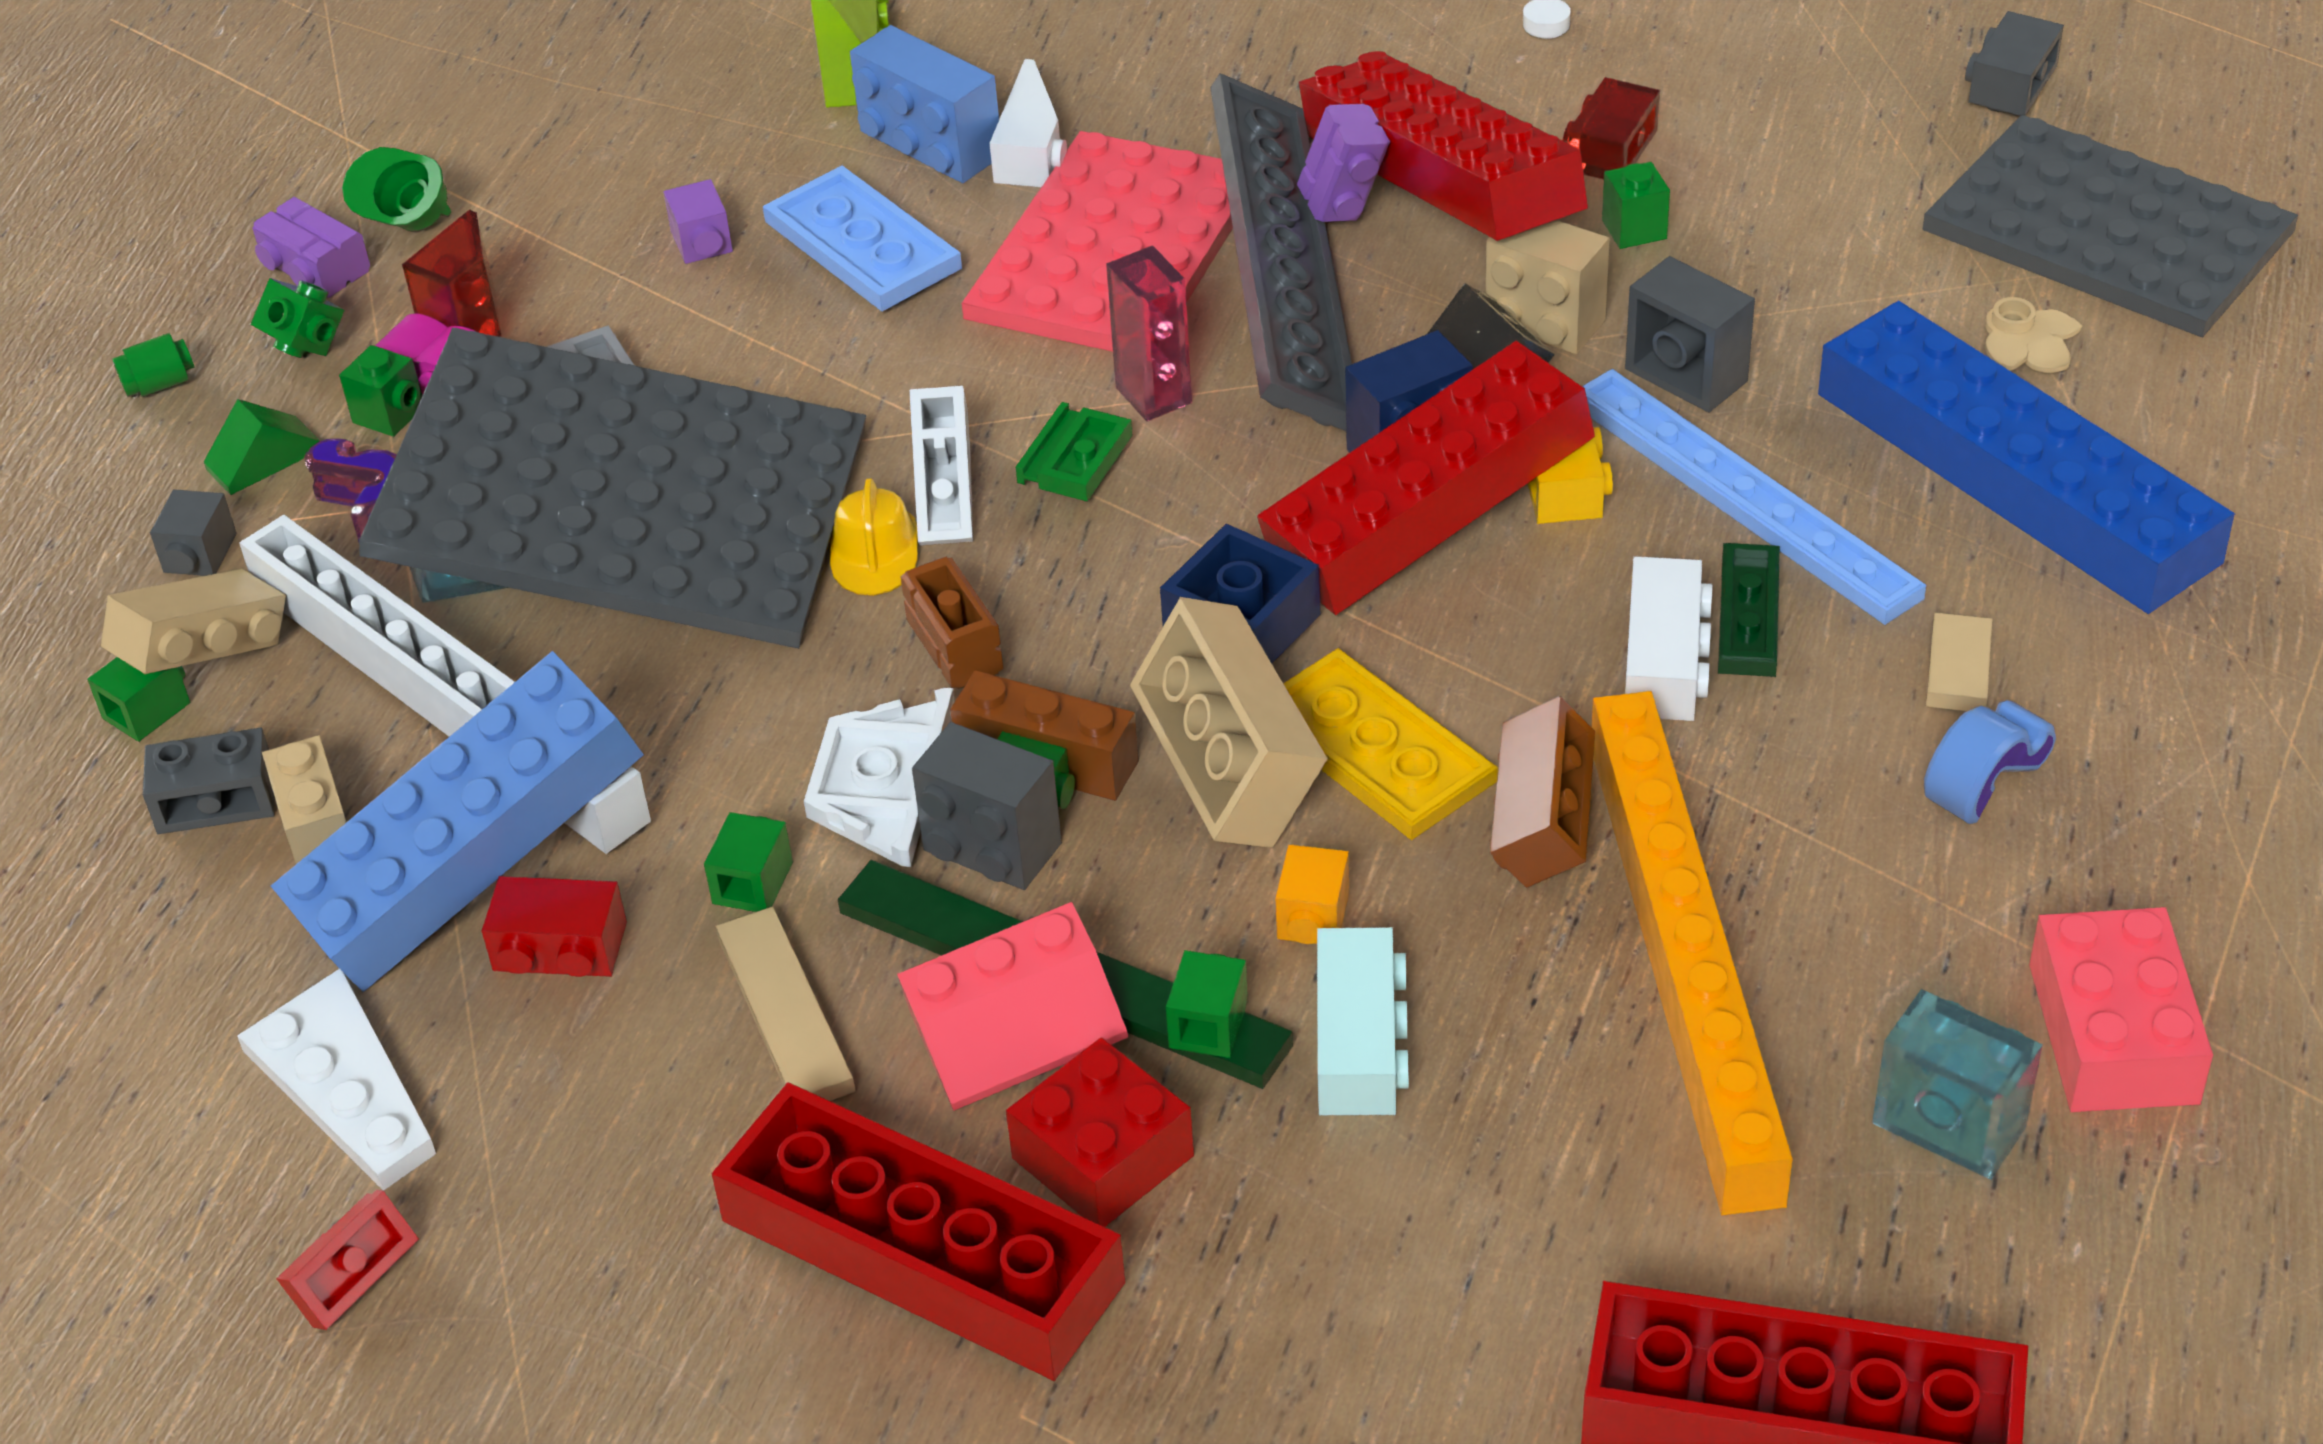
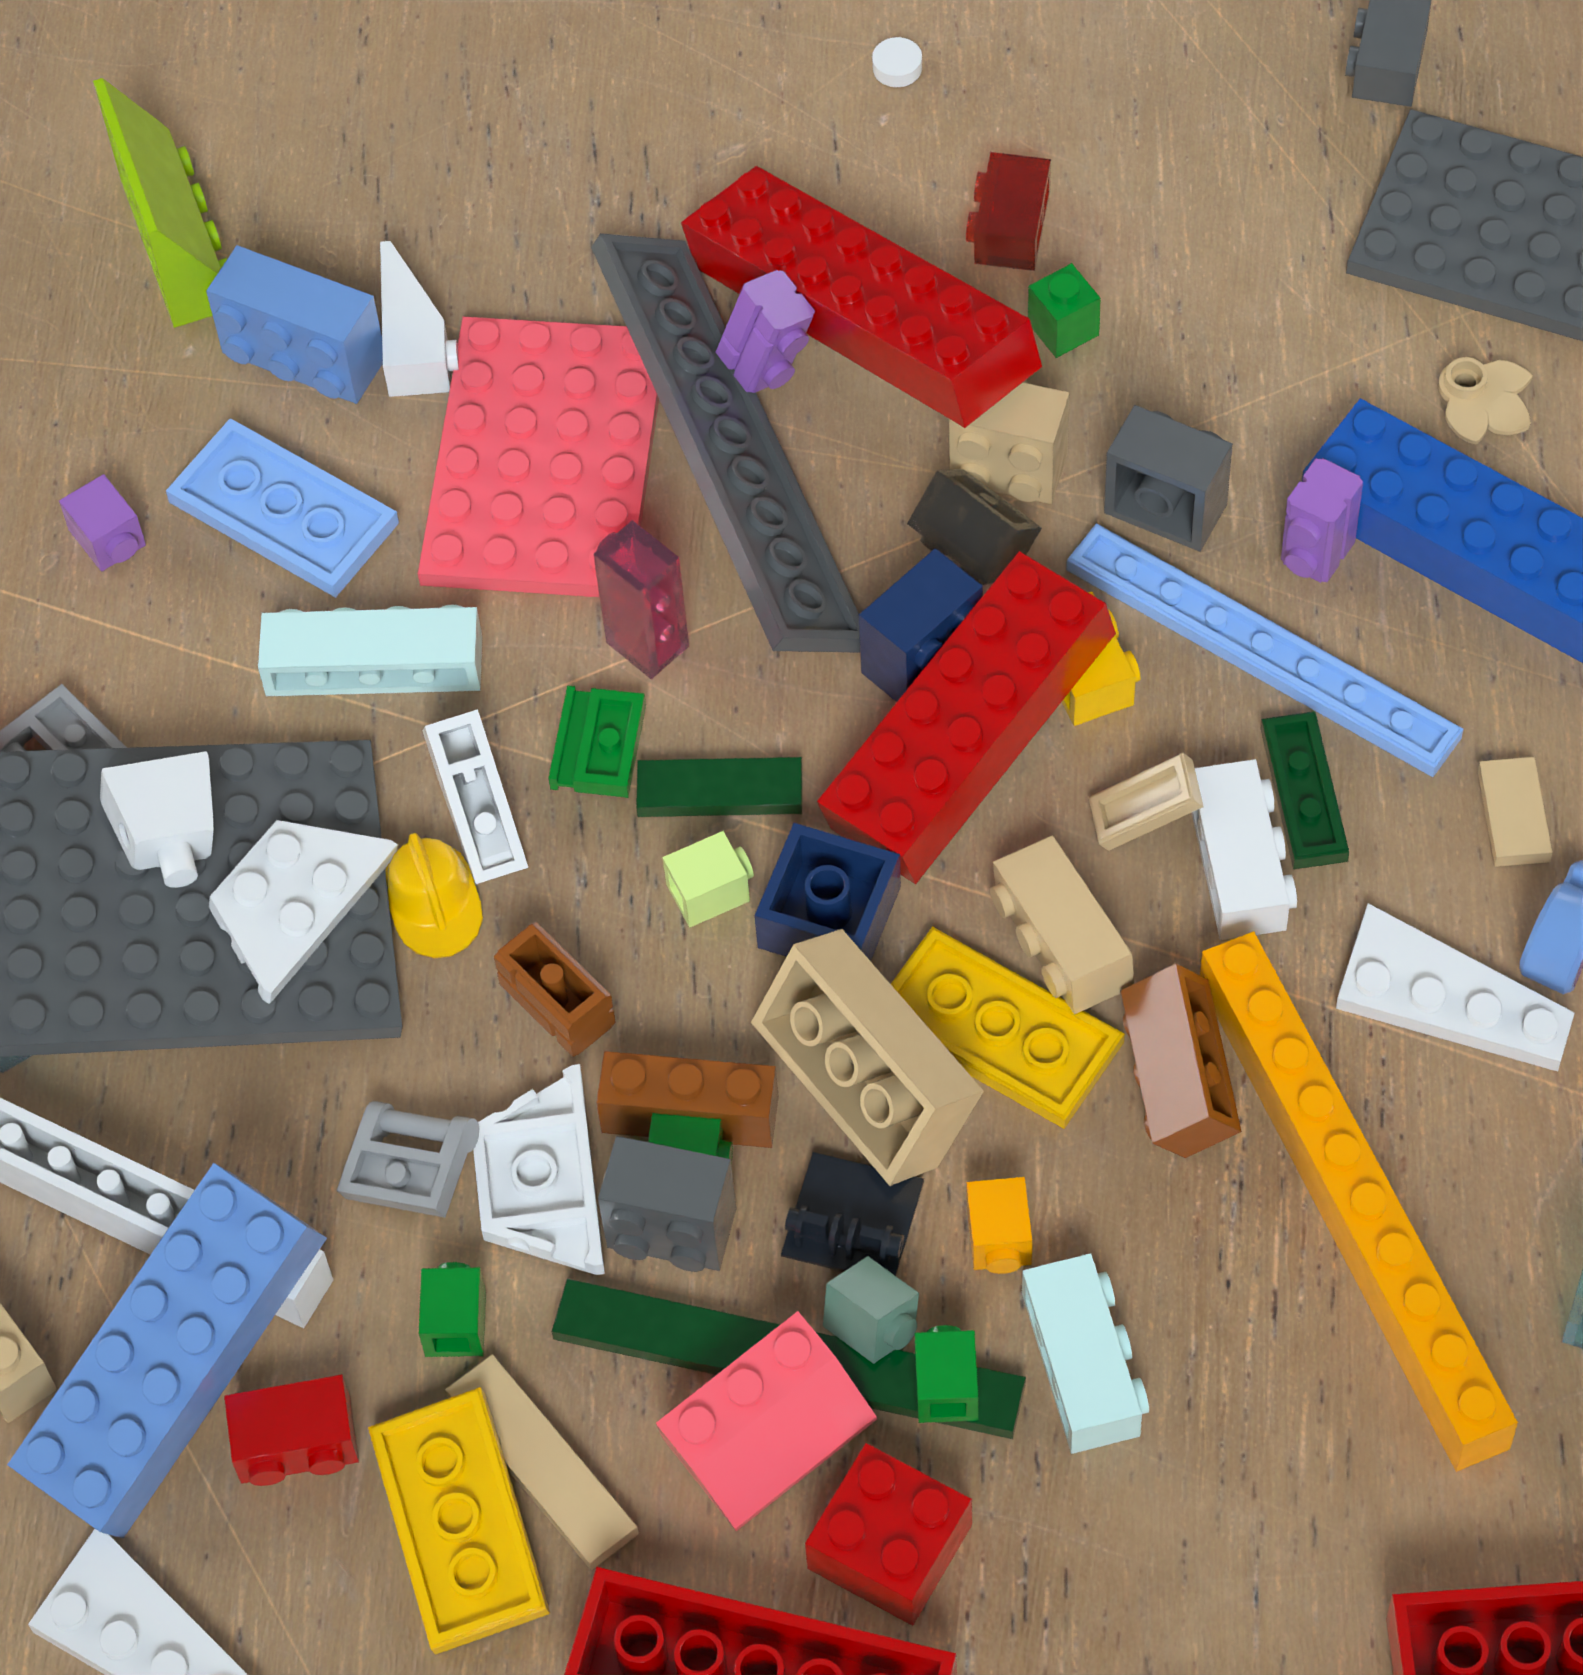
camera: 15 degrees left, 15 degrees up
(642, 406) = (162, 813): none -> white torso
(680, 1038) = (458, 1521): none -> yellow tile
(739, 502) = (293, 895): none -> white wing
(756, 746) = (406, 1175): none -> light grey plate
(892, 348) = (370, 651): none -> light aqua brick
(1133, 568) = (708, 878): none -> yellowish green brick
(1151, 933) = (871, 1310): none -> sand green brick
(1167, 867) = (850, 1215): none -> black hinge
(1172, 506) = (719, 787): none -> dark green tile
(1462, 661) = (1061, 925): none -> tan brick
(1582, 580) = (1145, 801): none -> tan tile
(1830, 388) = (1321, 520): none -> medium lavender brick
(1838, 796) = (1440, 992): none -> white wing

